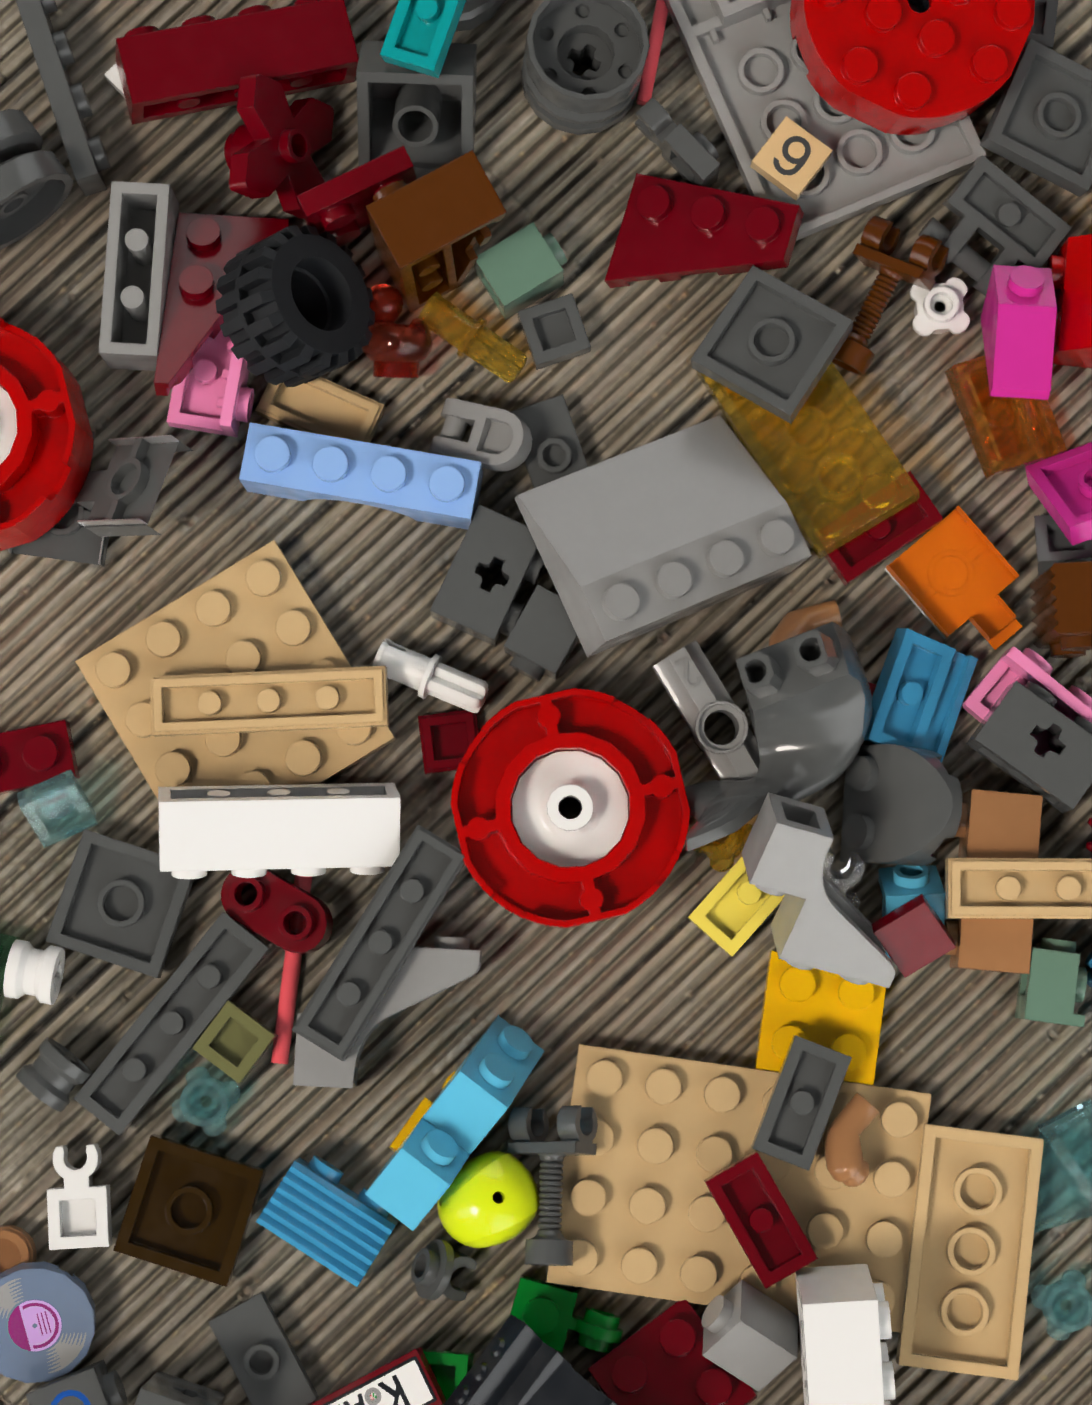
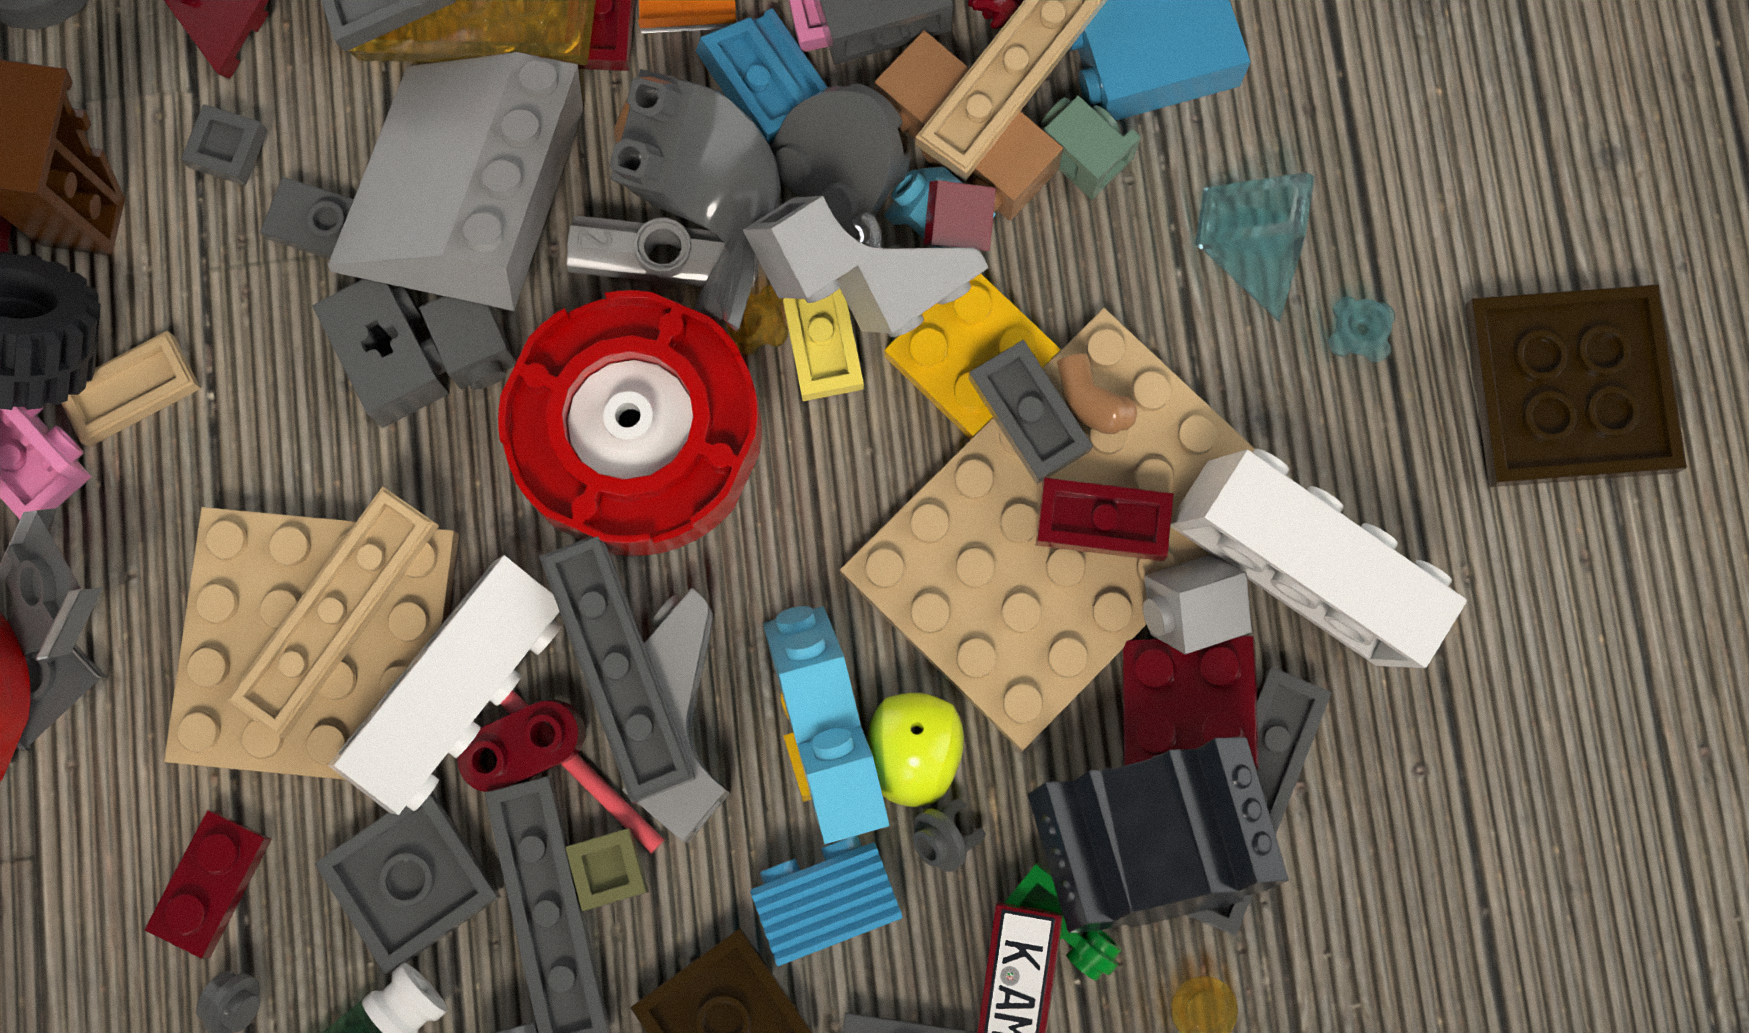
camera: 55 degrees left, 5 degrees down
(57, 808) = (277, 875): clear light blue plate -> none
(190, 1107) = (621, 932): clear light blue plate -> none
(377, 475) = (159, 428): light blue arch -> none
(395, 346) = (124, 281): clear red animal -> none
(431, 676) = (430, 460): white axle -> none
(446, 739) = (493, 492): dark red tile -> none
(473, 338) = (172, 215): clear yellow axle -> none
(496, 440) = (273, 255): light grey plate -> none
(521, 269) = (148, 132): sand green brick -> none
(528, 1131) = (889, 673): dark grey bar -> none
(549, 1314) = (1053, 762): green plate -> none
(970, 1252) = (1260, 369): tan plate -> none

